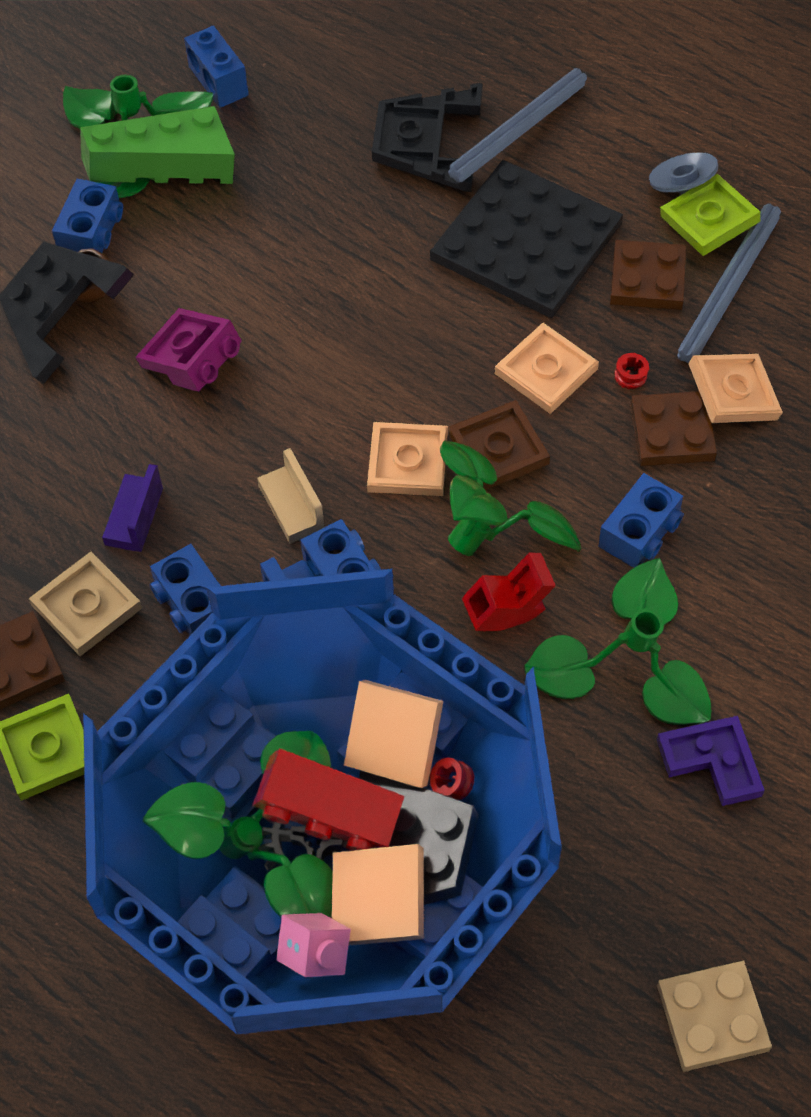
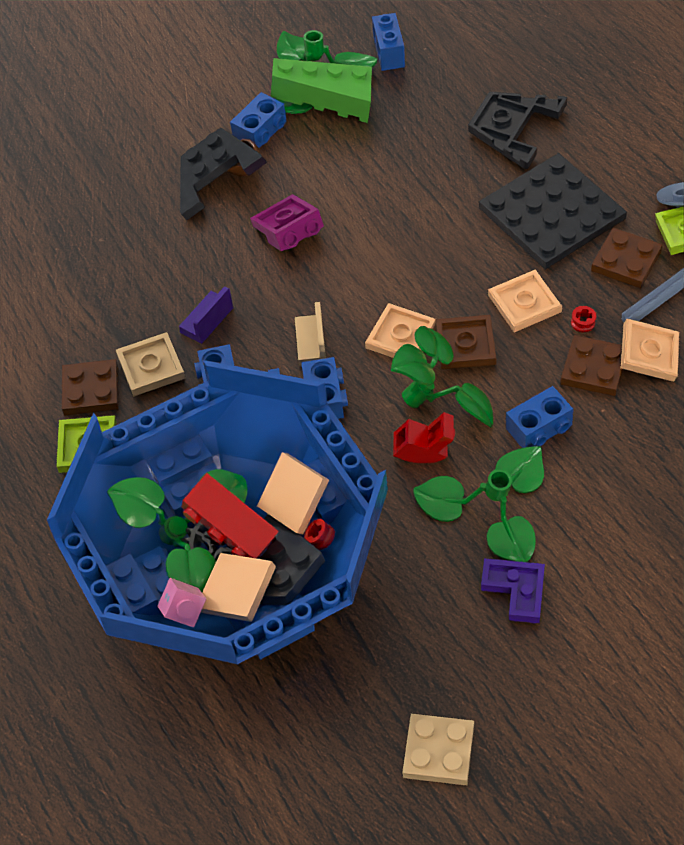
camera: 25 degrees right, 5 degrees down
(517, 125) = (579, 131): sand blue axle -> none

